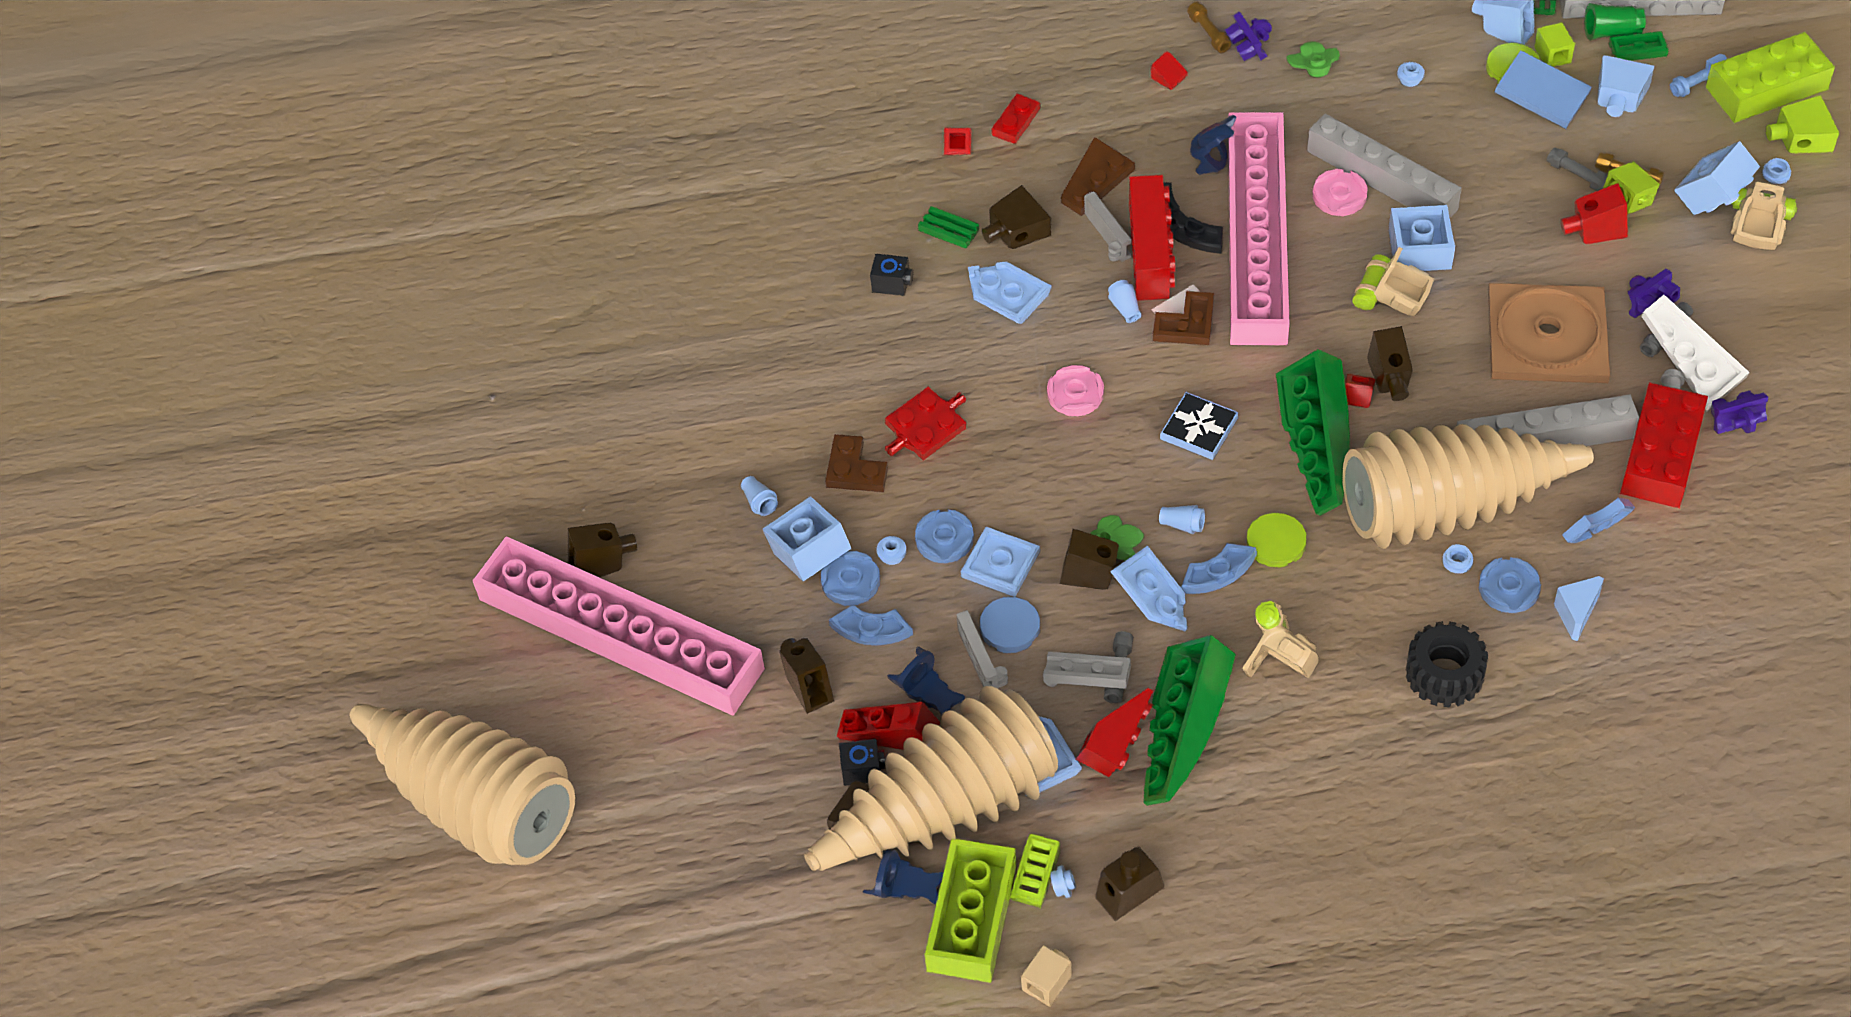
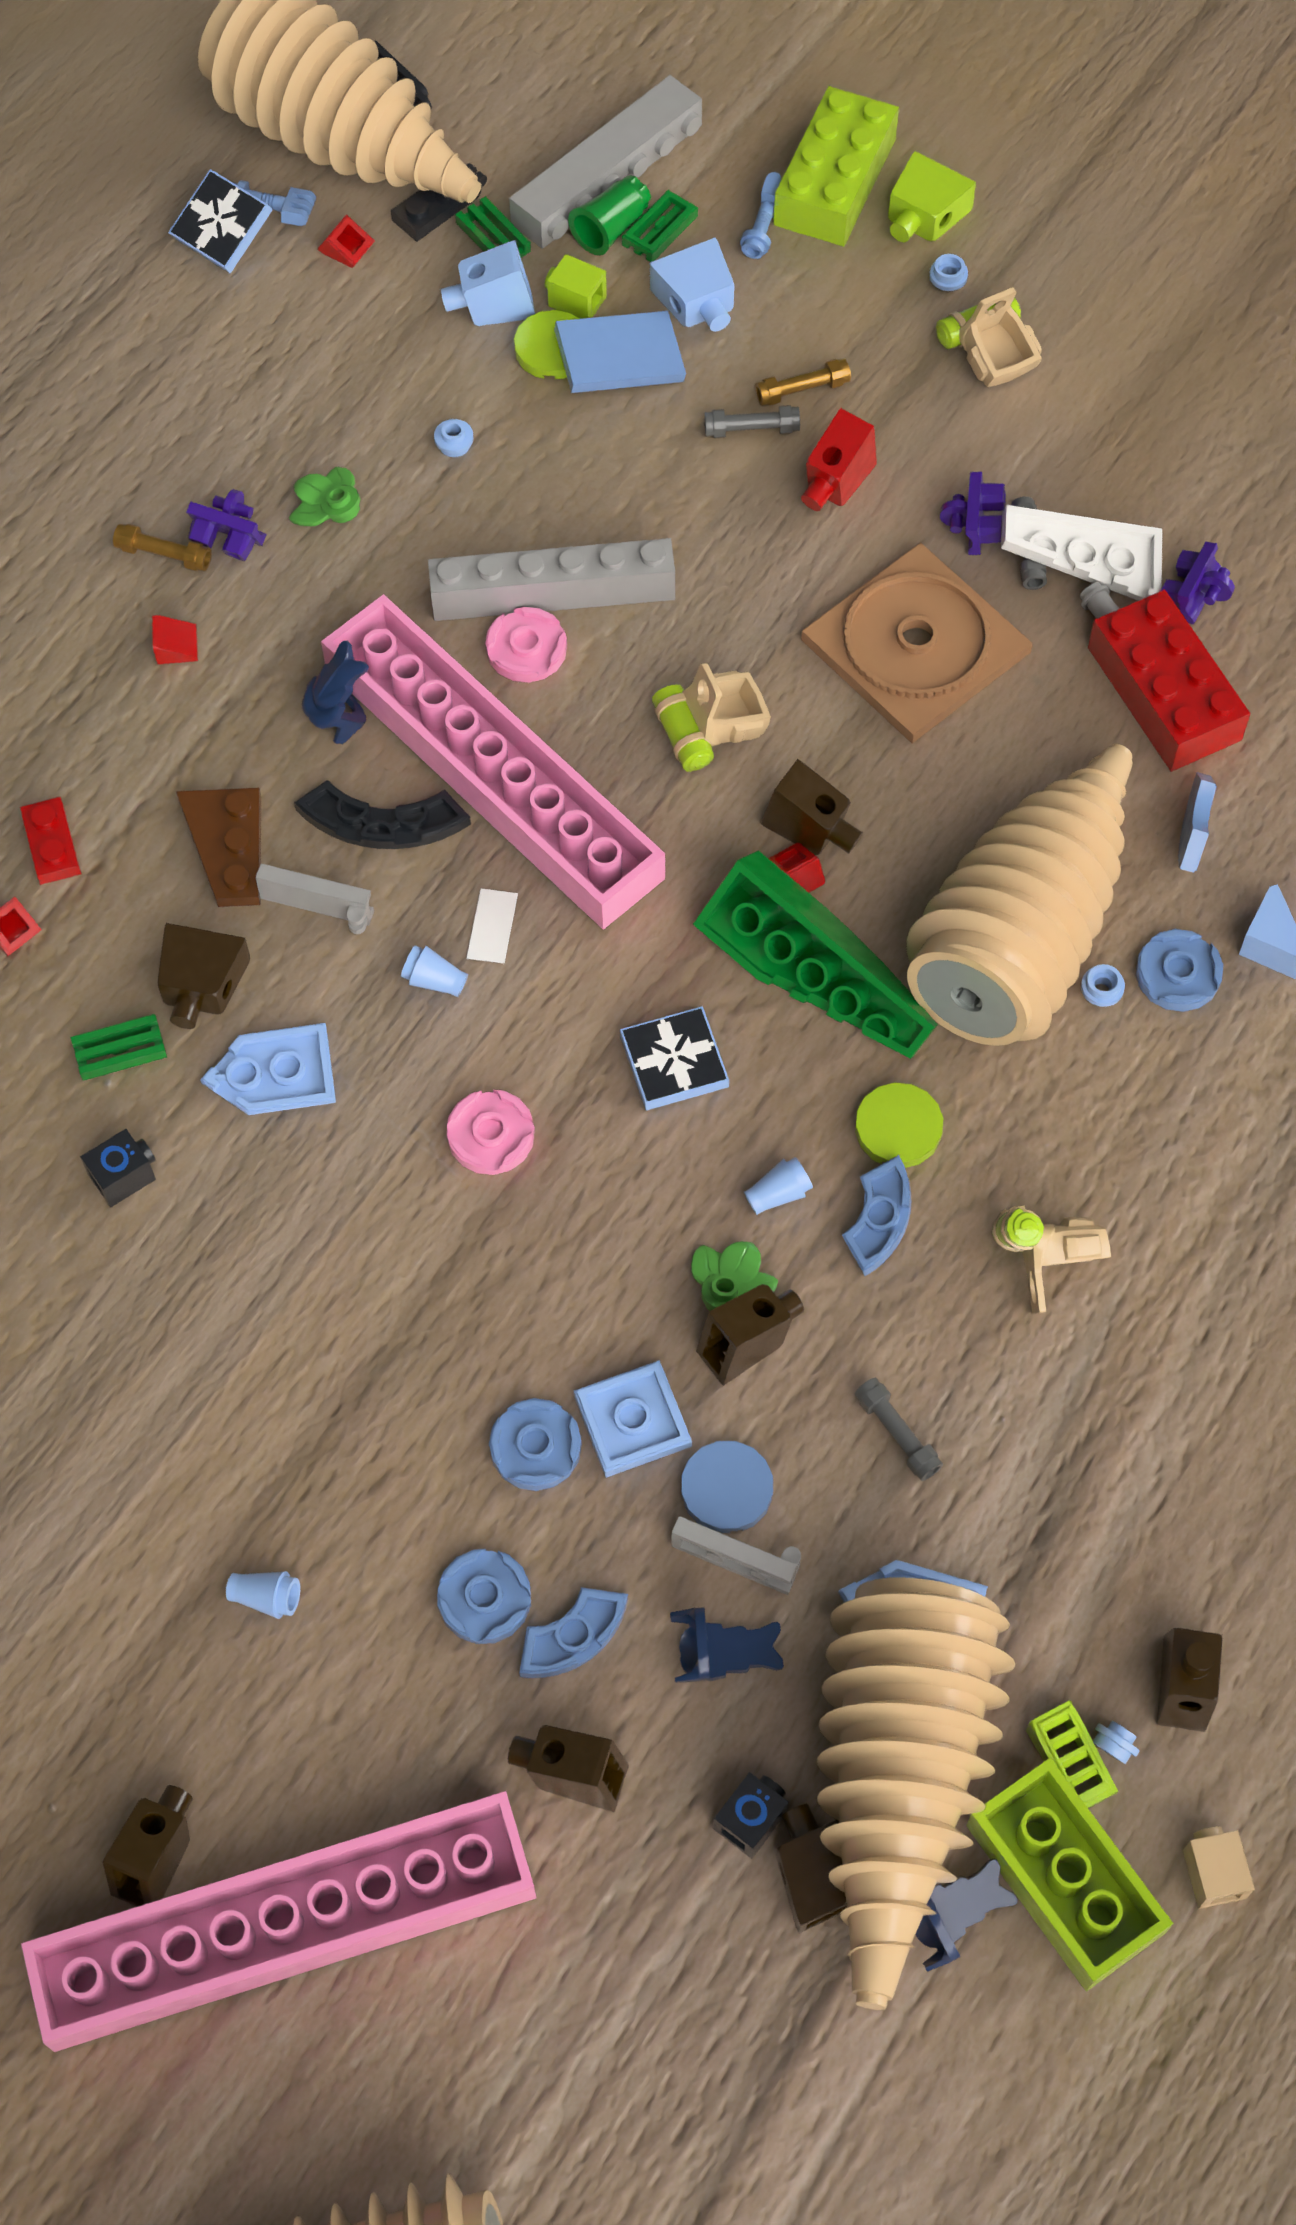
camera: 50 degrees left, 10 degrees up
(807, 538) = (395, 1597): light blue brick -> none
(849, 471) = (334, 1463): reddish brown plate -> none
(886, 723) = (732, 1740): red slope -> none
(893, 556) = (496, 1530): light blue plate -> none
(925, 423) = (363, 1322): red plate -> none
(1086, 670) = (879, 1466): light grey hinge -> none
(1110, 737) = (986, 1515): red slope -> none
(1151, 237) = (401, 874): red brick -> none
(1152, 589) = (843, 1302): light blue tile -> none
(1186, 708) = (1030, 1420): green wedge -> none
(1190, 327) = (540, 943): reddish brown plate -> none
(1423, 235) = (684, 629): light blue brick -> none
(1446, 643) = (1235, 1088): black tyre -> none
(1573, 423) = (1045, 747): light grey brick -> none
(1636, 185) = (826, 394): lime head -> none
(1717, 179) = (916, 326): light blue brick -> none

